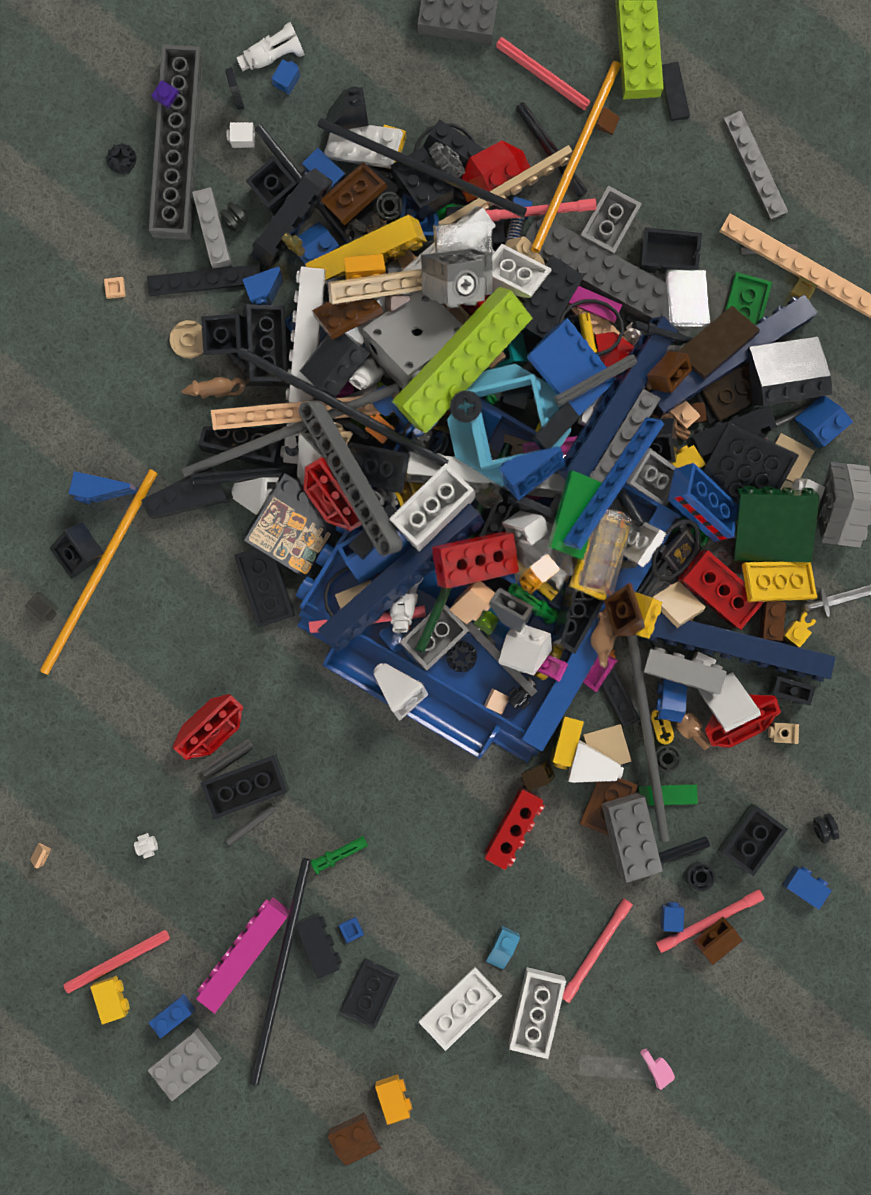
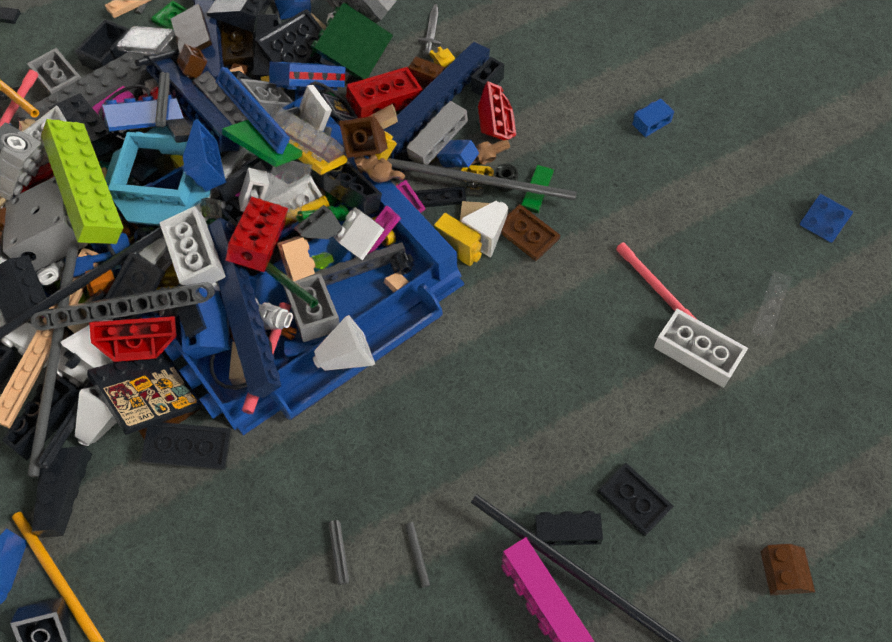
camera: 70 degrees left, 25 degrees down
(209, 727) = (296, 552): red wedge -> none
(245, 786) = (374, 540): black brick -> none
(330, 858) = (483, 484): green pin -> none
(351, 929) = (563, 493): blue tile -> none
(393, 1099) = (753, 512): light orange brick -> none
(460, 666) = (350, 300): black gear -> none
(460, 1008) = (676, 418): white plate -> none
(472, 412) = (116, 181): black gear -> none
(503, 947) = (628, 357): dark azure slope -> none
(505, 857) = (518, 306): red brick -> none
(537, 775) = (478, 270): dark brown slope -> none
(538, 574) = (297, 189): slope -> none
(631, 837) = (563, 219): dark grey brick -> none
(659, 1069) = (781, 270): bright pink piece -> none
(672, 917) = (645, 216): blue brick -> none
(684, 849) = (589, 188): black axle -> none
(704, 884) = (616, 185): black wheel -> none
(718, 940) = (677, 188): reddish brown brick -> none
(733, 705) = (480, 114): white tile -> none
(742, 1101) = (826, 218): none -> blue bracket
(747, 901) = (667, 225): coral piece -> none
(752, 839) = (599, 138): black brick -> none
(779, 581) = (397, 57): yellow tile -> none
(792, 735) = (520, 93): tan brick -> none
(826, 828) = (608, 89): black wheel -> none

